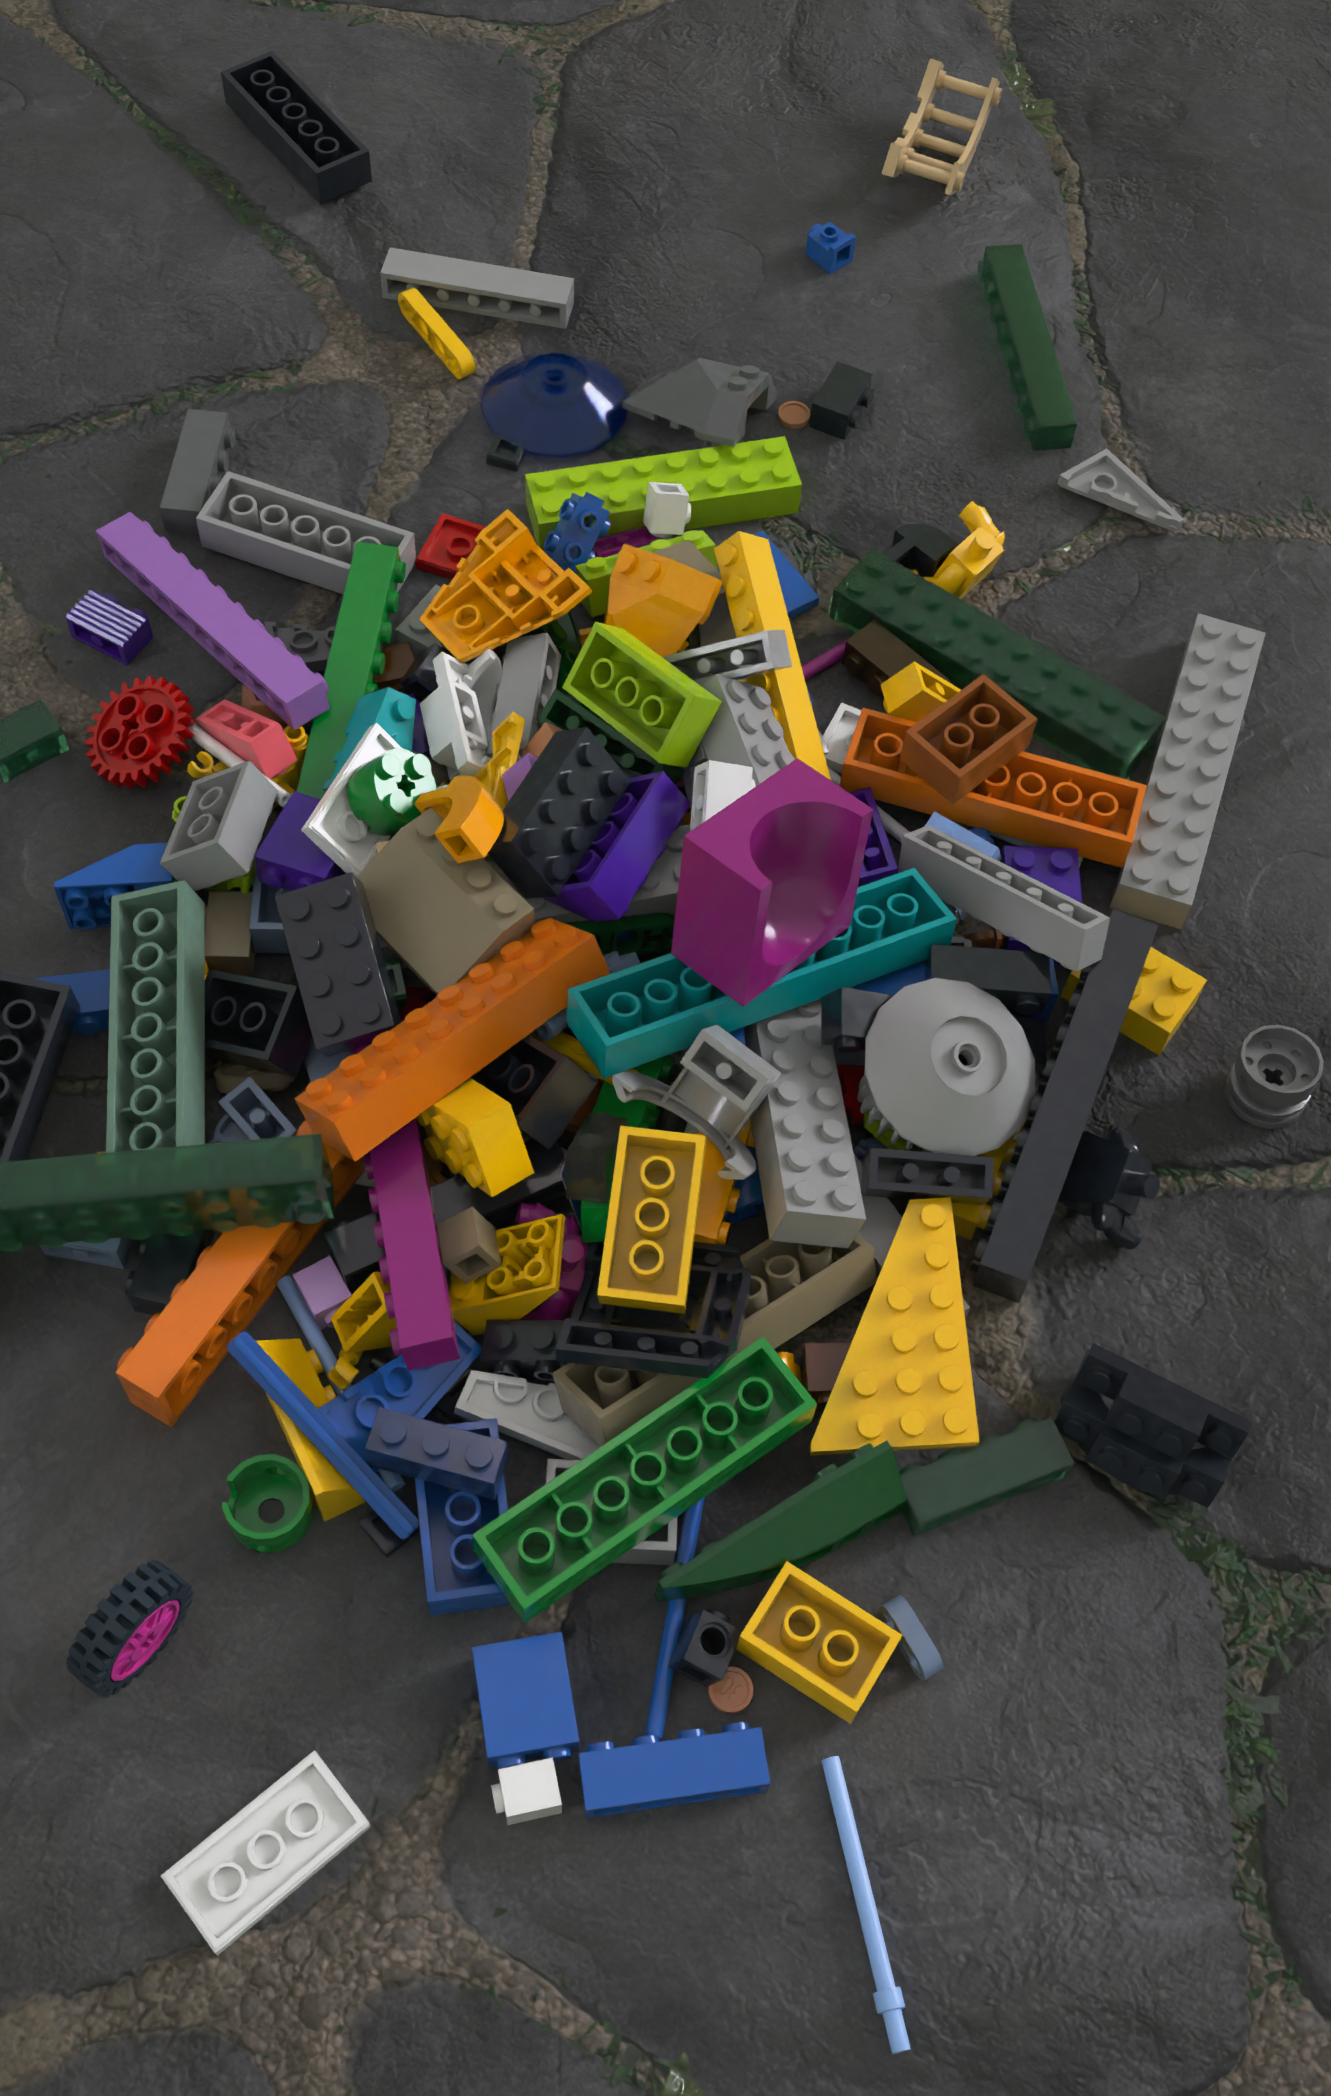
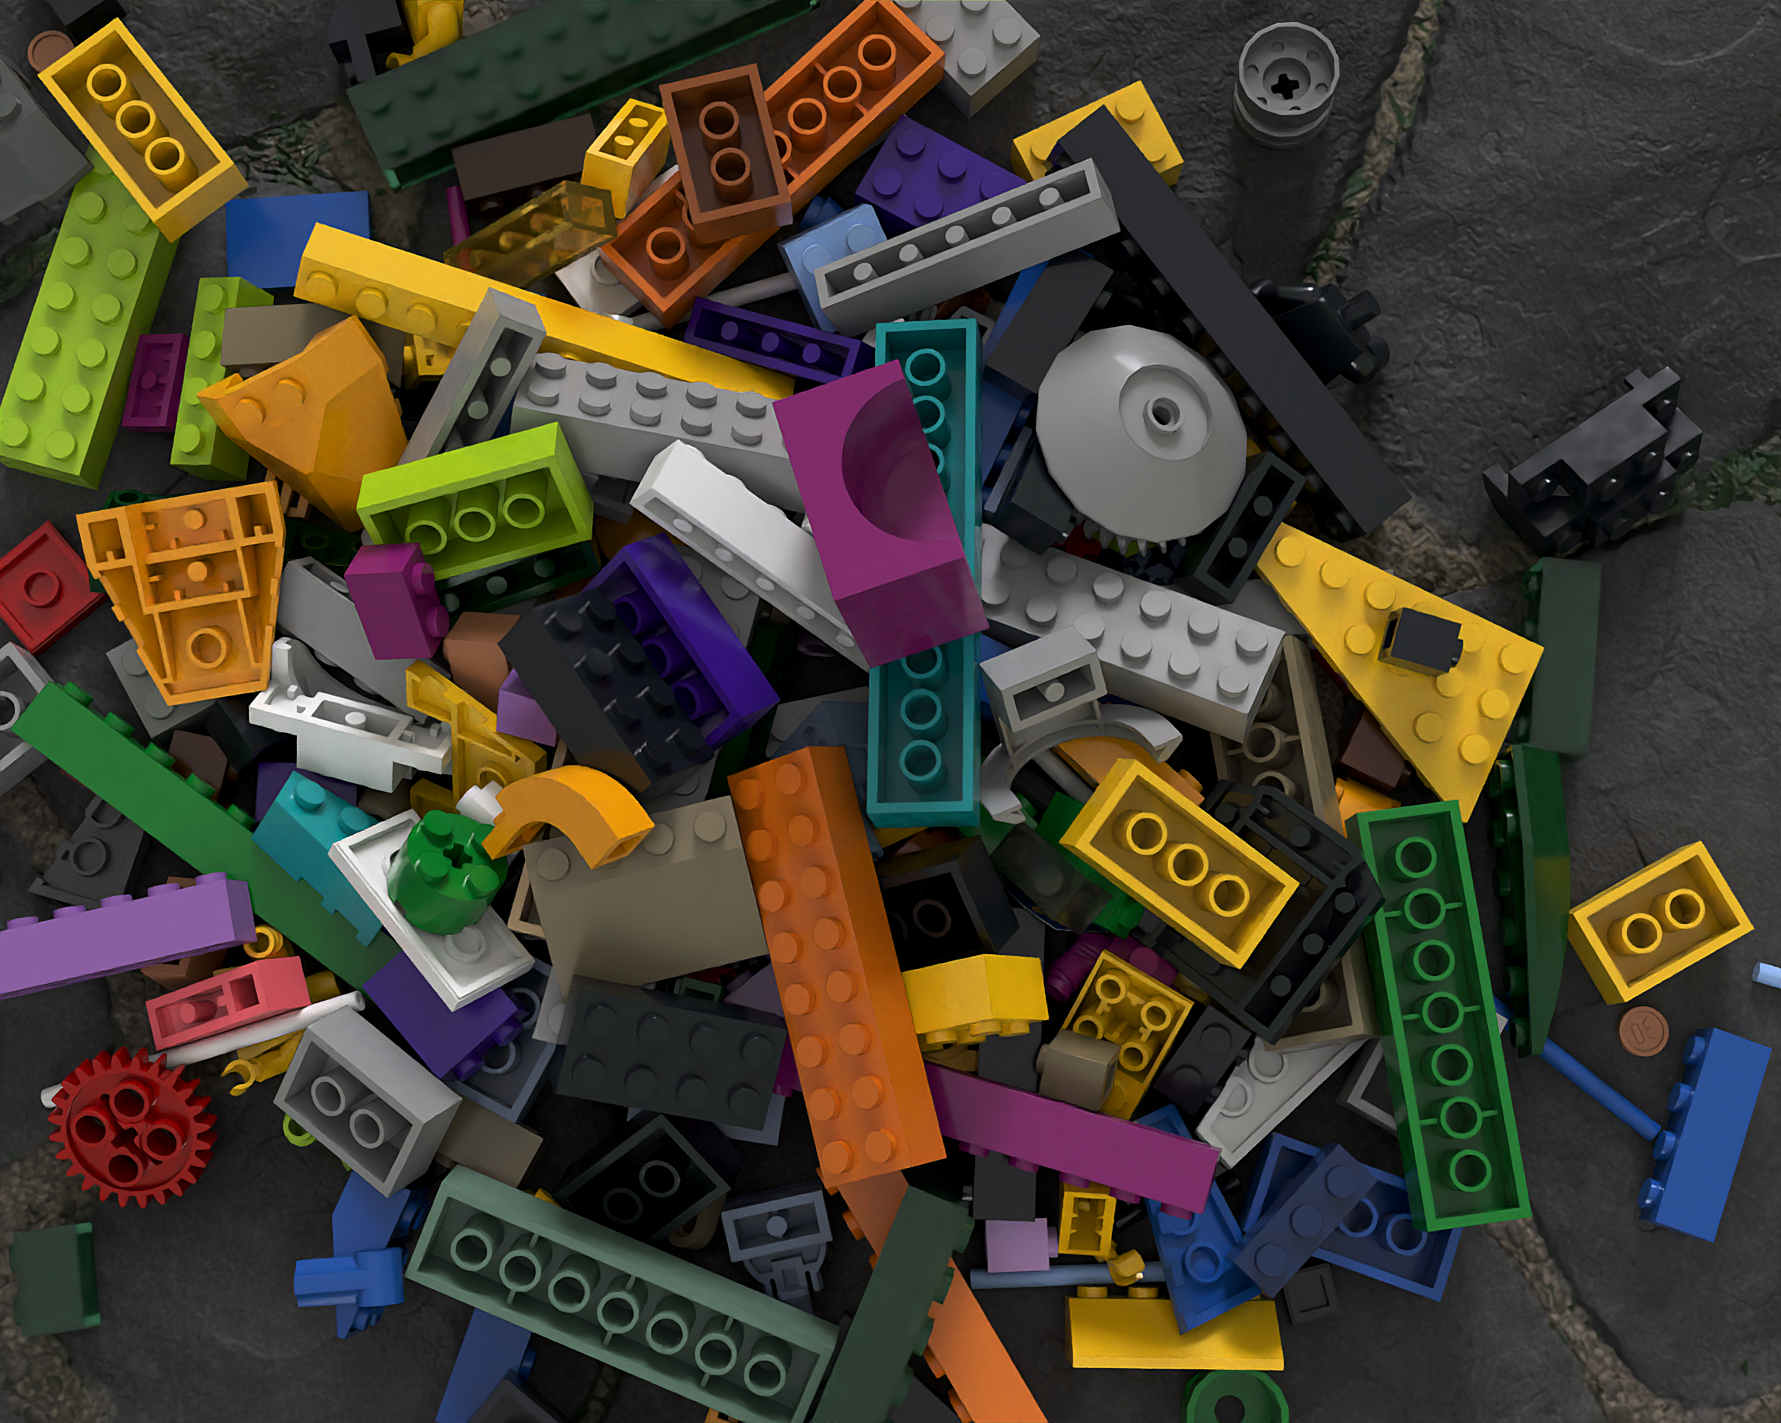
camera: 60 degrees left, 20 degrees up
(98, 872) = (364, 1278): none -> blue piece
(323, 1435) = (1212, 1332): blue axle -> none
(525, 1700) = (1570, 1247): blue brick -> none
(527, 1791) = (1656, 1287): white brick -> none
(553, 681) = (397, 601): none -> magenta brick
(572, 540) = (122, 437): blue brick -> none
(666, 509) = (149, 306): white brick -> none
(691, 1658) = (1621, 1037): black brick -> none
(769, 451) = (143, 130): none -> yellow brick
(848, 675) = (539, 236): none -> clear yellow brick
(915, 1641) = (1684, 826): sand blue beam -> none
(921, 1331) = (1420, 642): none -> black brick

